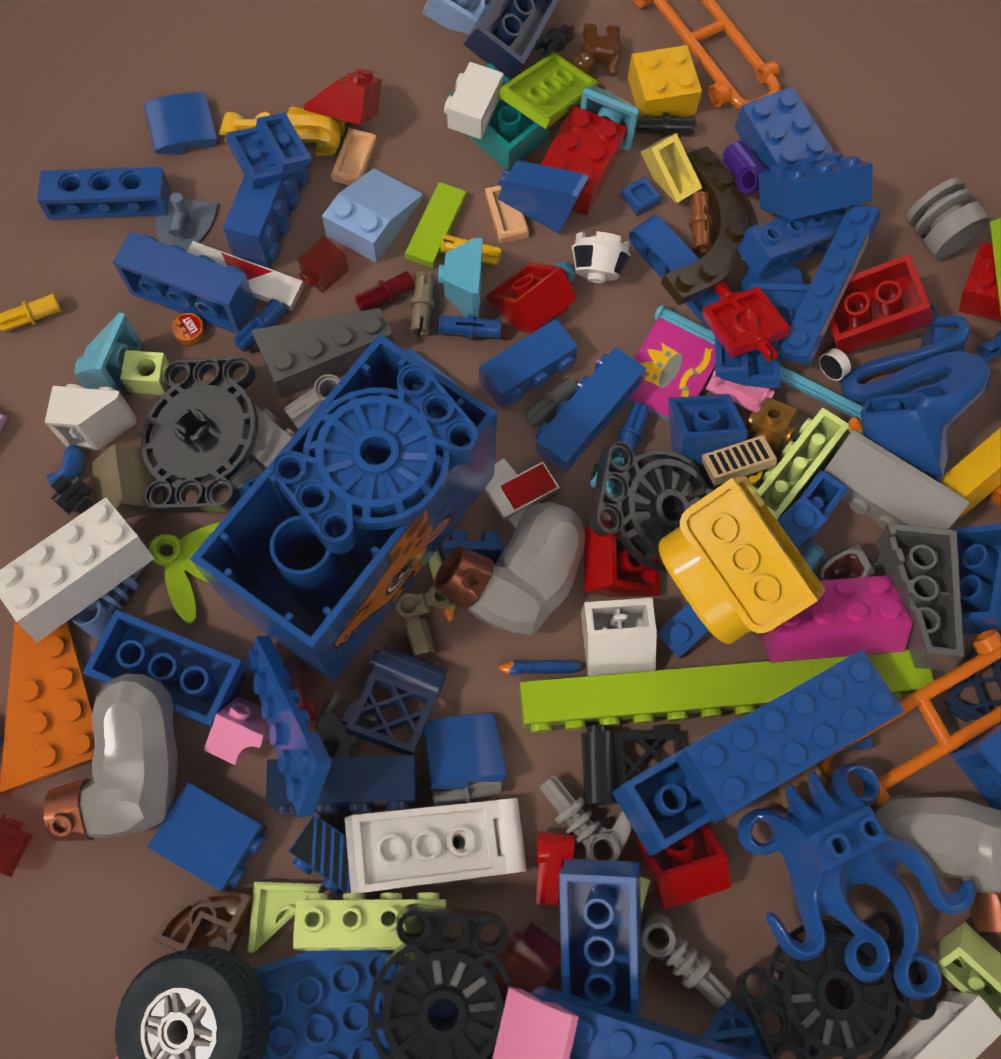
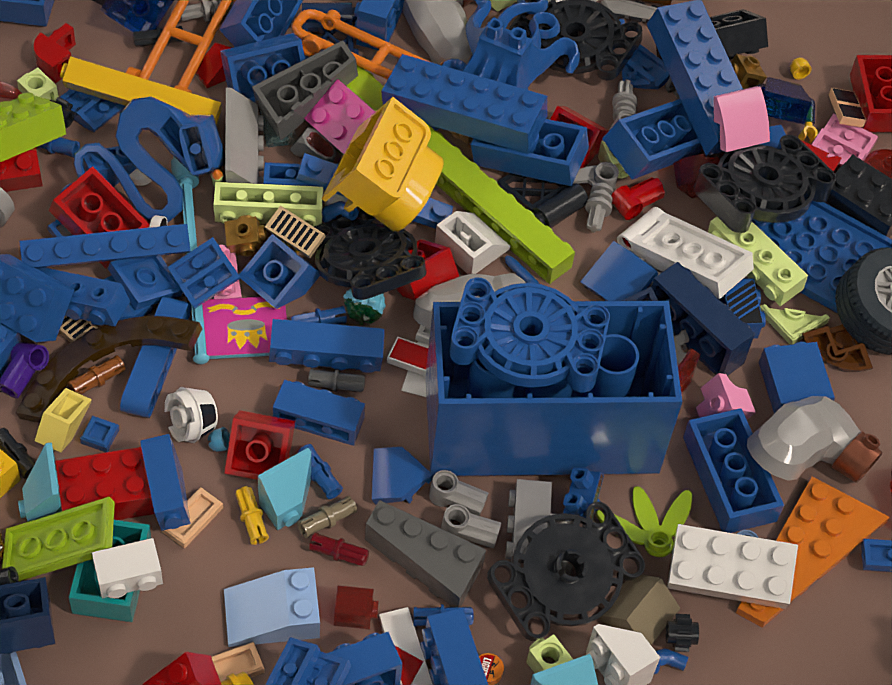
camera: 130 degrees left, 15 degrees down
(299, 751) = (722, 304): blue wing -> none
(434, 224) = (245, 559): lime tile -> none
(745, 321) = (184, 278): red plate -> none

